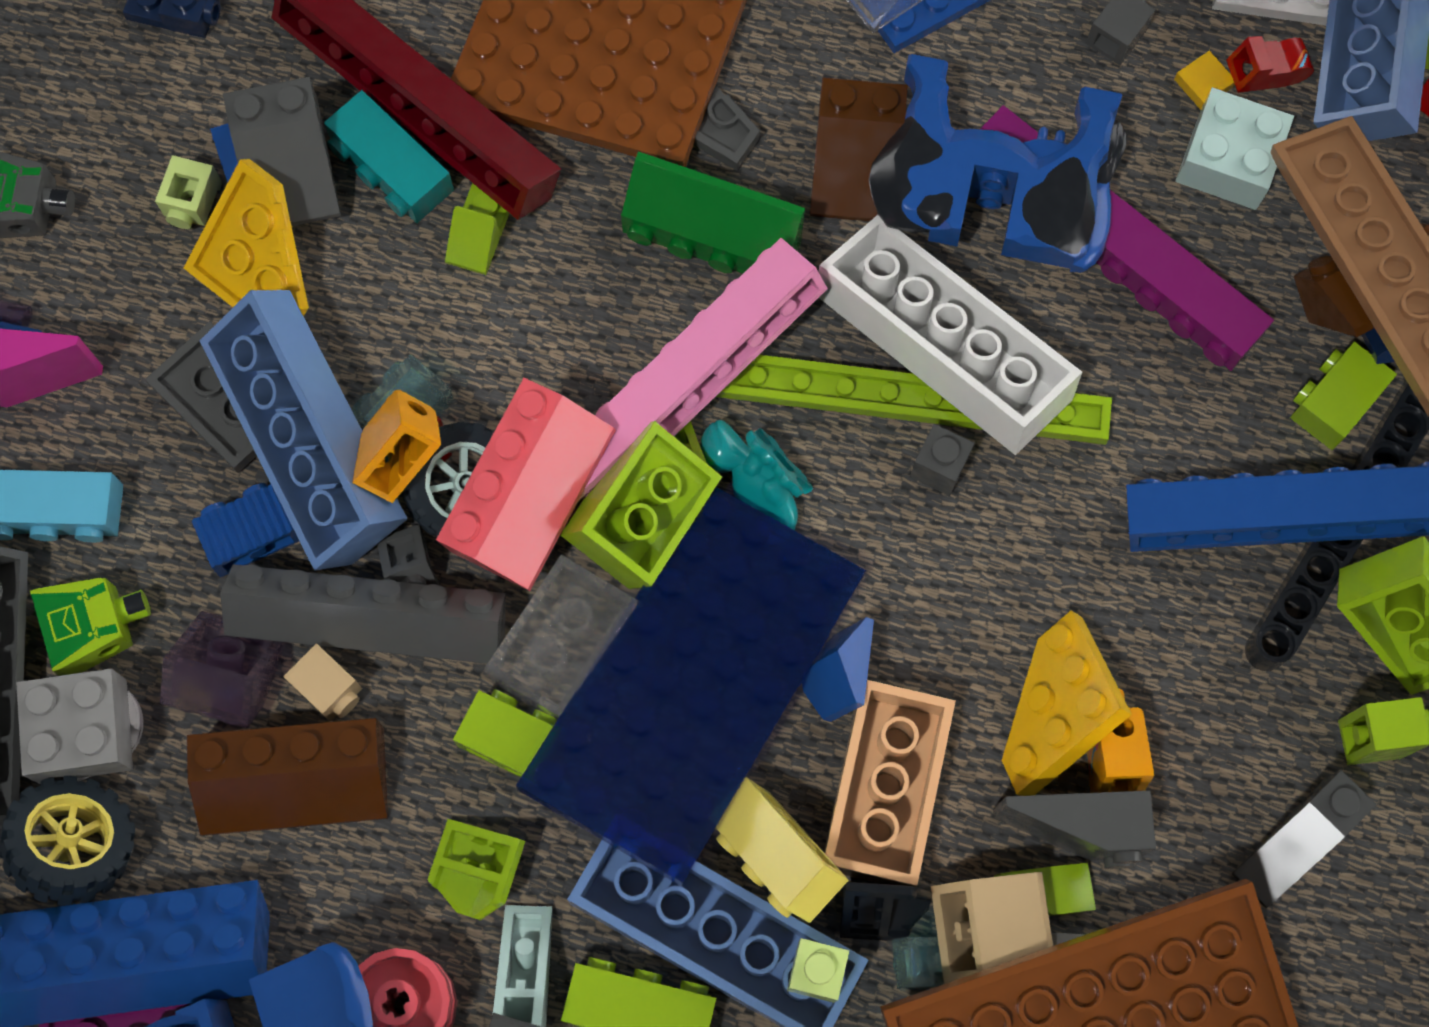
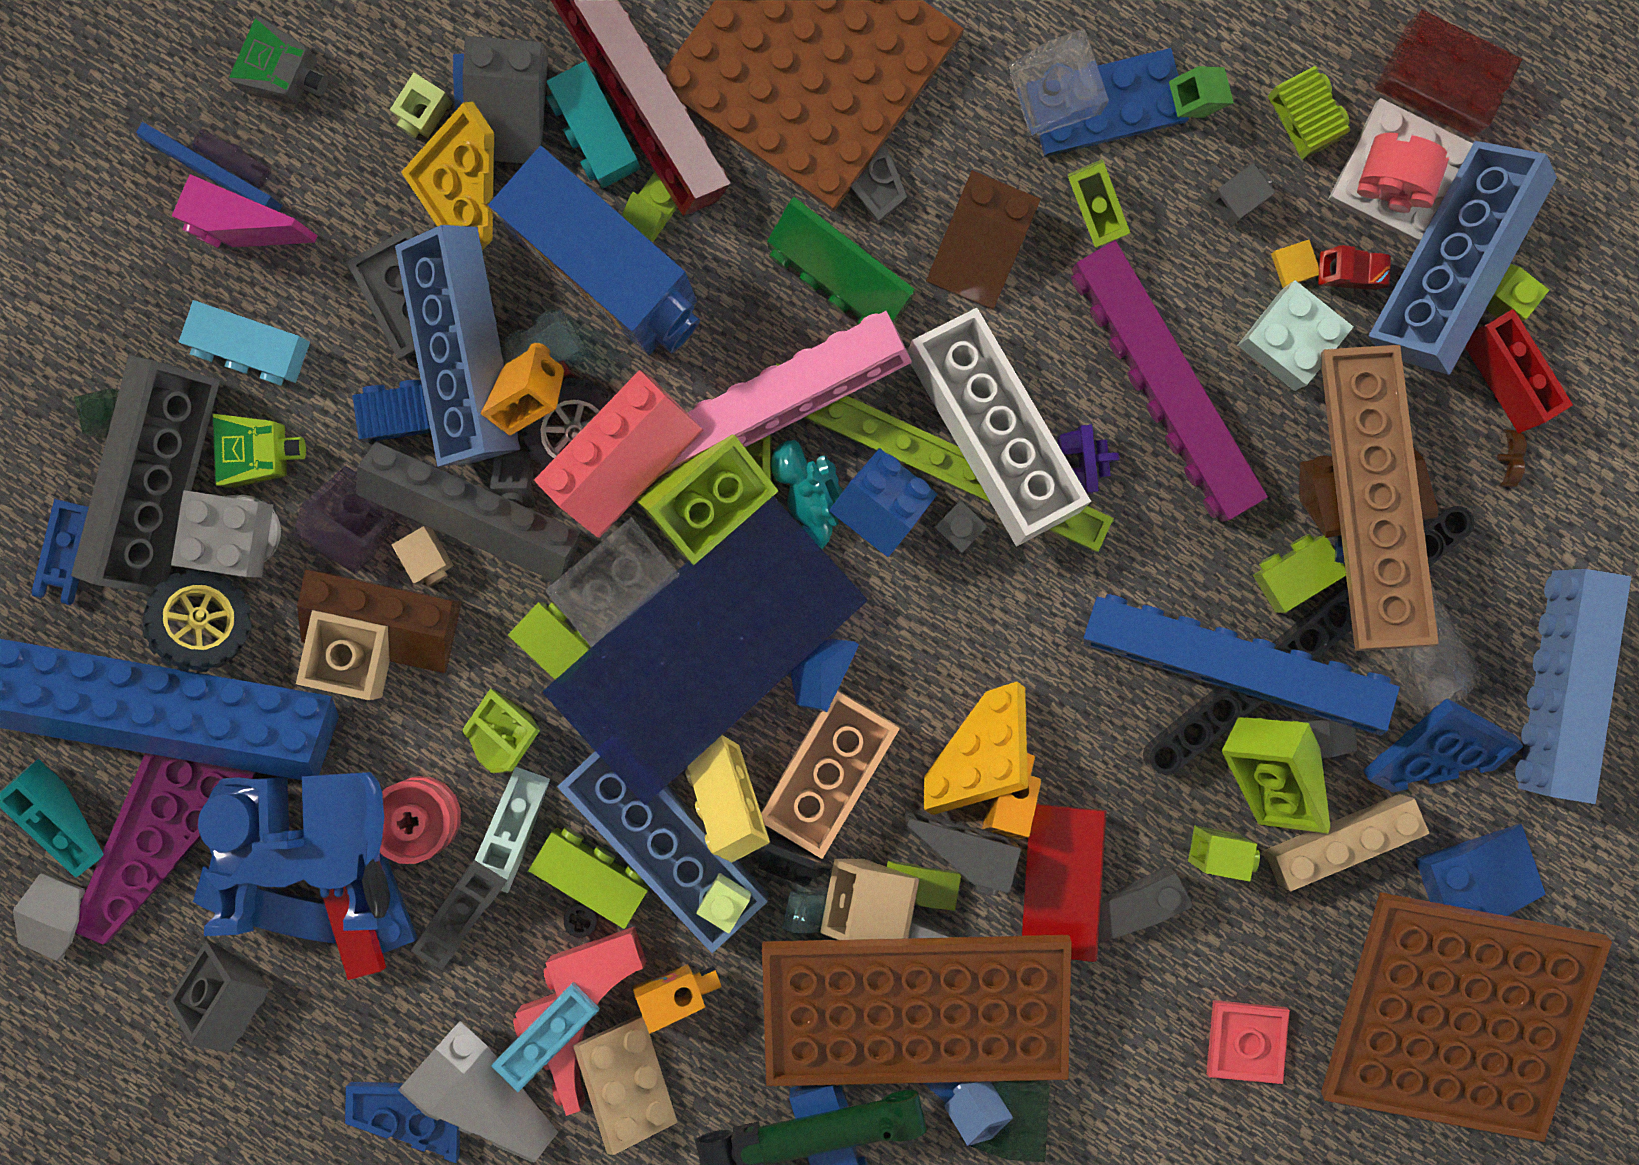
camera: 20 degrees right, 15 degrees up
(261, 826) = (345, 656): none -> tan slope
(438, 273) = (597, 254): none -> blue brick
(846, 452) = (883, 502): none -> blue brick
(973, 74) = (1098, 203): none -> lime slope
(1057, 187) = (1131, 328): blue animal -> none
(1061, 335) = (1082, 443): none -> dark purple hips
(1212, 819) = (1065, 876): none -> red tile

